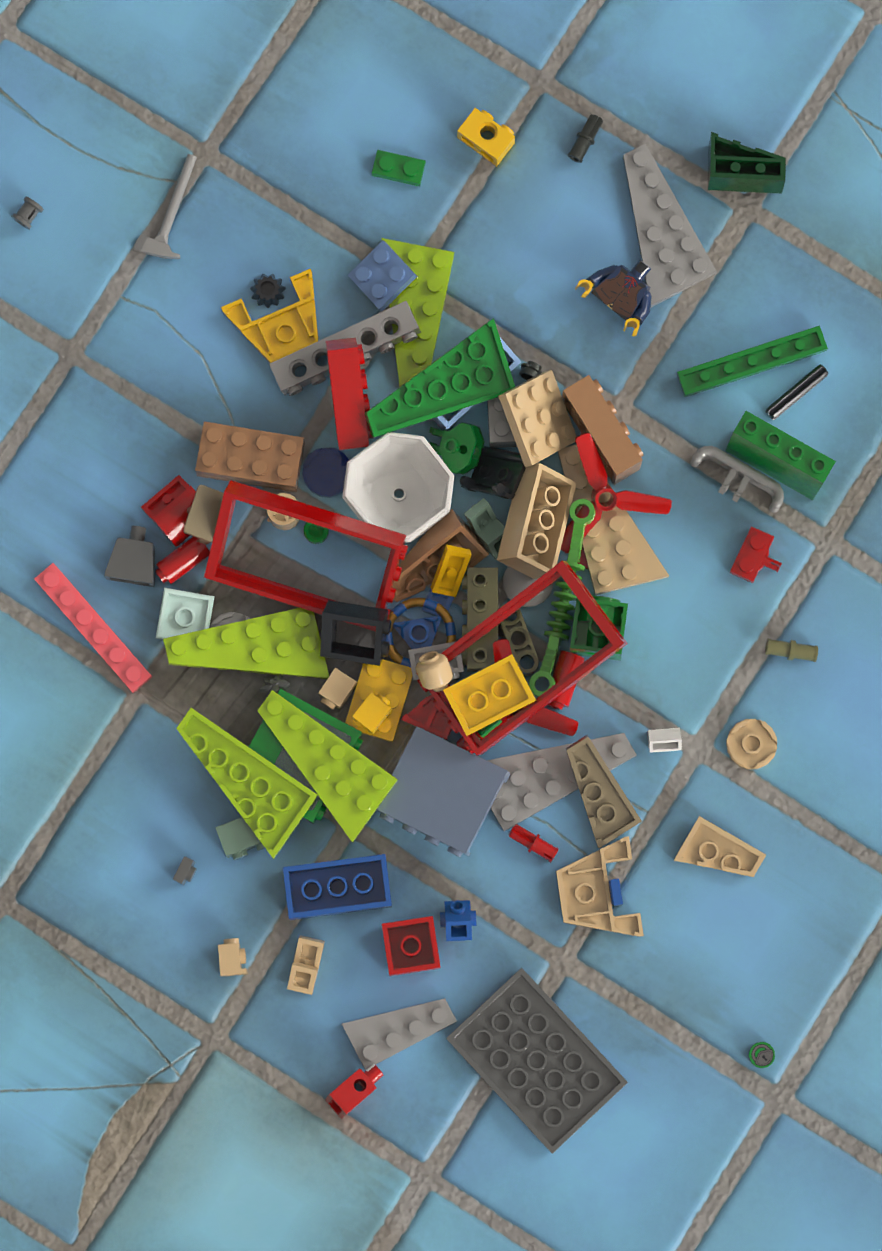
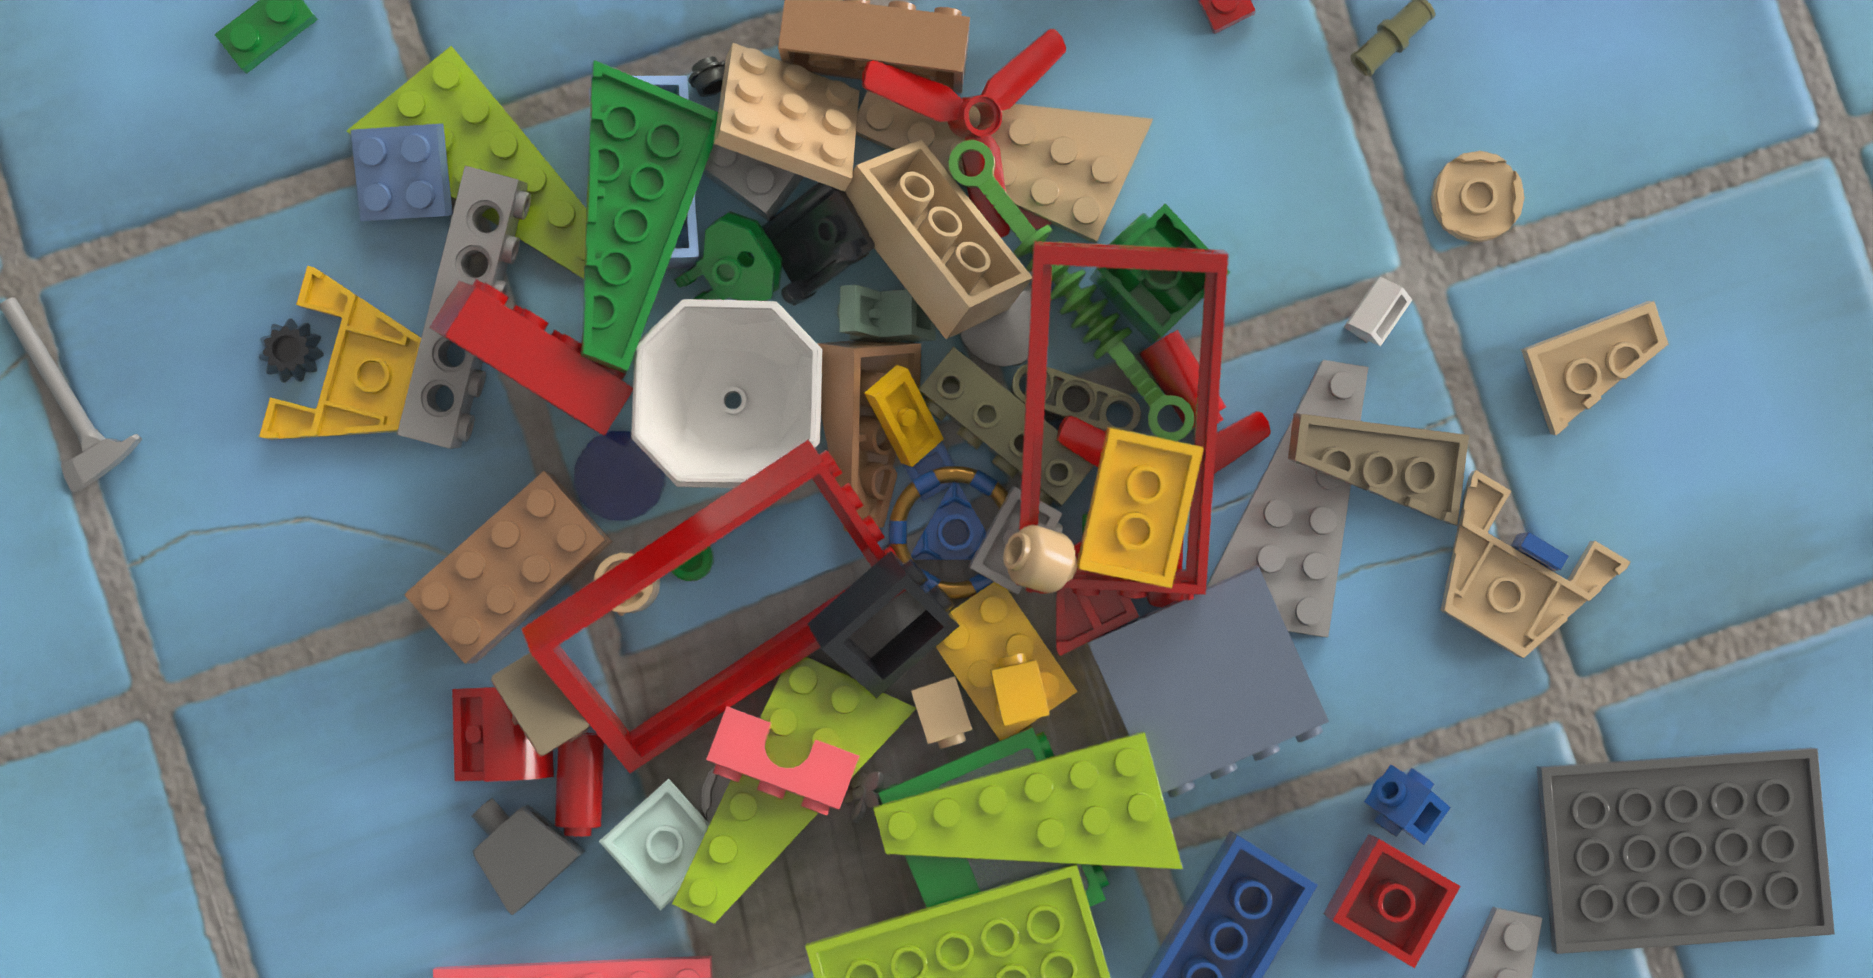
camera: 50 degrees left, 5 degrees up
(265, 657) = (741, 751): none -> coral arch
(533, 842) = (1378, 609): red axle -> none

